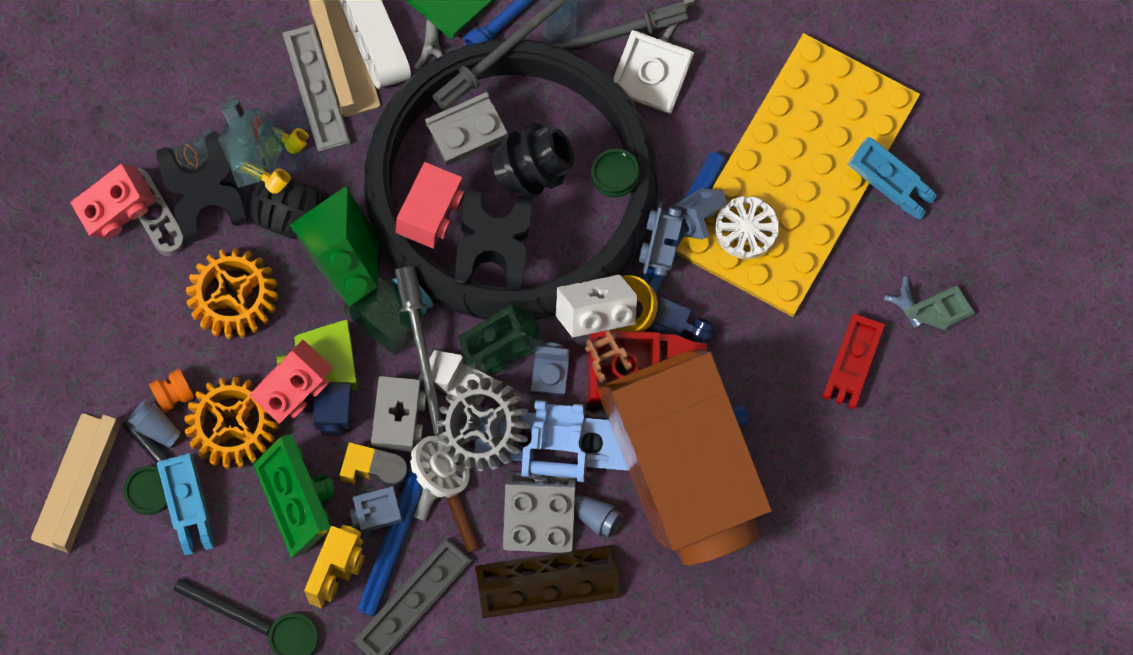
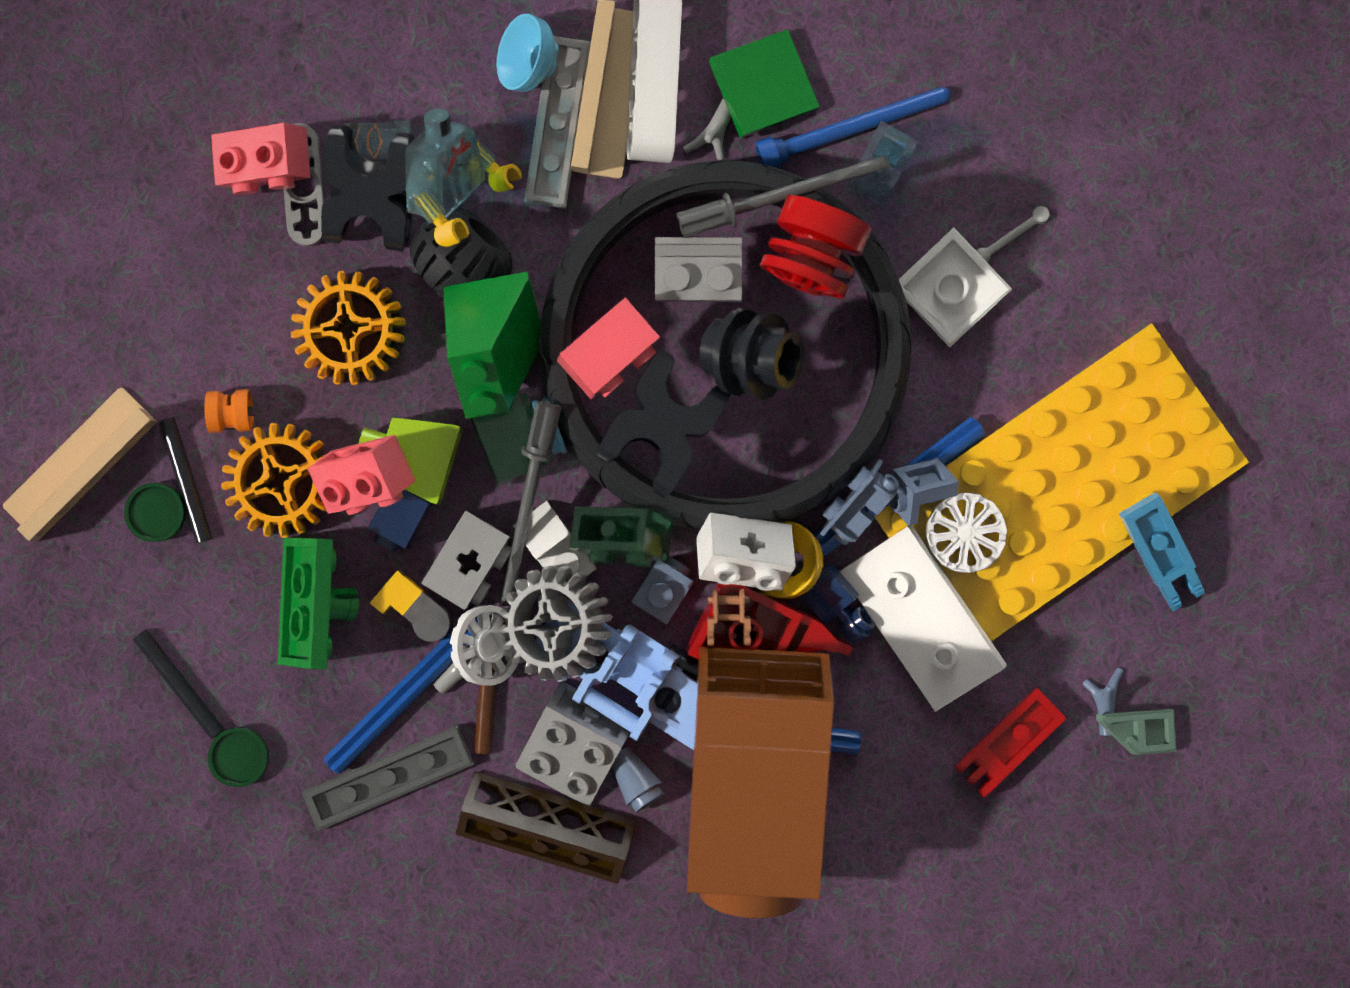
camera: 30 degrees right, 15 degrees up
(153, 423) = (192, 441): sand blue cone -> none
(185, 500) = (187, 548): dark azure hinge -> none
(266, 48) = (526, 53): none -> medium azure piece
(338, 558) = (324, 700): yellow plate -> none
(375, 510) = (391, 661): sand blue bracket -> none
(542, 68) = (815, 248): none -> red wheel
(615, 172) = (843, 406): dark green piece -> none
(652, 20) = (984, 224): dark grey piece -> none
(747, 302) = (923, 618): none -> white plate

